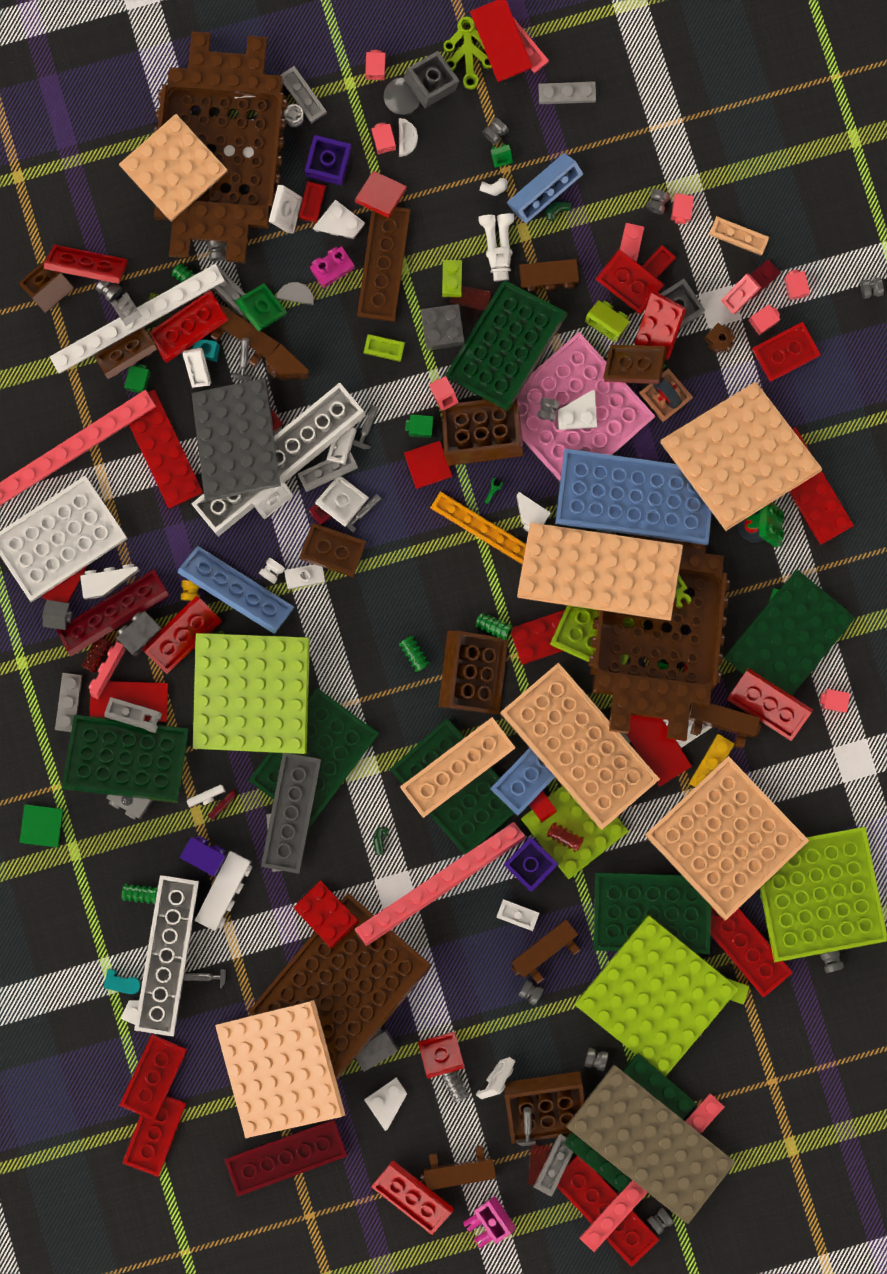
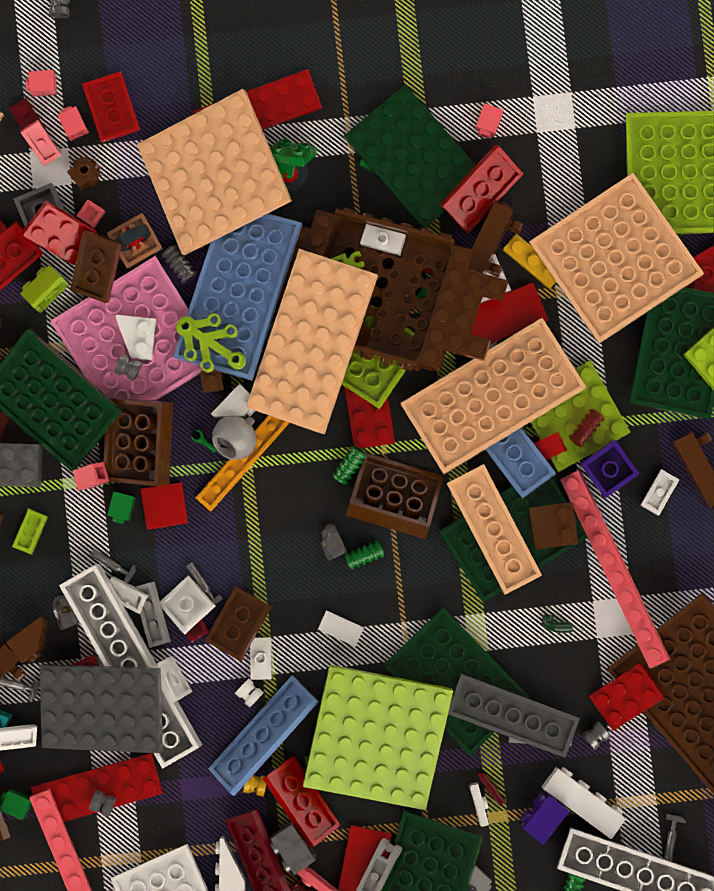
camera: 75 degrees left, 0 degrees up
(151, 456) = (102, 803): none -> dark grey wheel
(286, 892) = (596, 735): none -> flat silver wheel
(315, 391) = (64, 613): none -> flat silver rock
(343, 644) = (340, 628): none -> white tile
(420, 622) = (332, 543): none -> flat silver rock
(470, 821) = (553, 525): none -> reddish brown slope
(503, 517) = (236, 436): none -> light grey piece
(548, 487) = (212, 381): none -> reddish brown brick
(584, 477) = (208, 340): none -> lime plant
(653, 437) = (179, 264): none -> flat silver piece
(683, 351) = (90, 213): none -> coral plate
(706, 621) = (383, 239): none -> white plate

